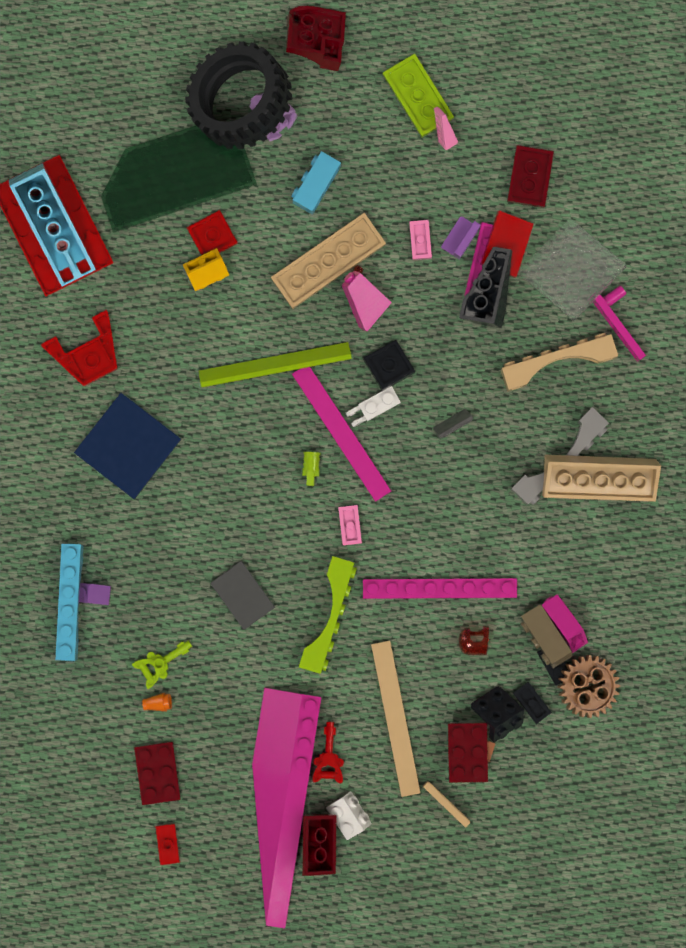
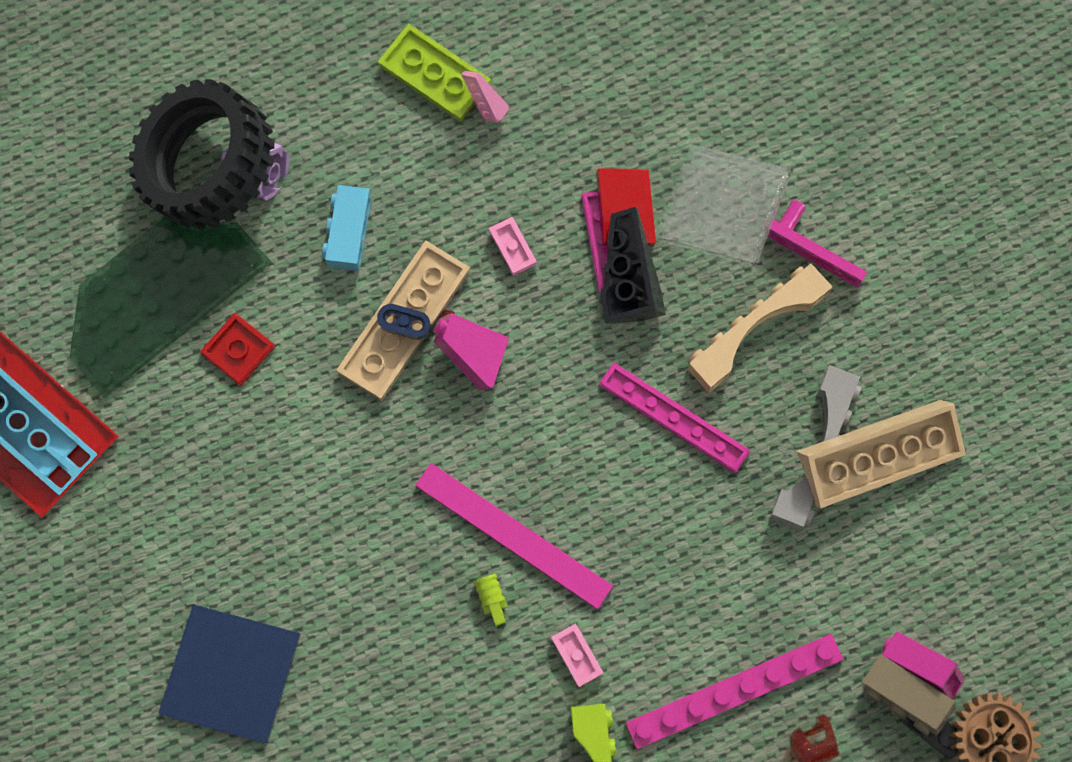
camera: 20 degrees left, 10 degrees down
(91, 359) = (134, 577): red wing -> none
(206, 269) = (246, 394): yellow brick -> none
(274, 364) = (386, 482): lime tile -> none
(316, 35) = (275, 48): dark red slope -> none
(328, 263) = (405, 321): none -> dark blue plate
(375, 405) = (543, 482): white hinge -> none
(389, 365) = (539, 421): black plate -> none
(453, 423) = (656, 463): flat silver slope -> none
(460, 237) = (563, 223): medium lavender panel -> none
(477, 398) = (674, 418): none -> dark pink tile
(530, 176) = (619, 114): dark red plate -> none

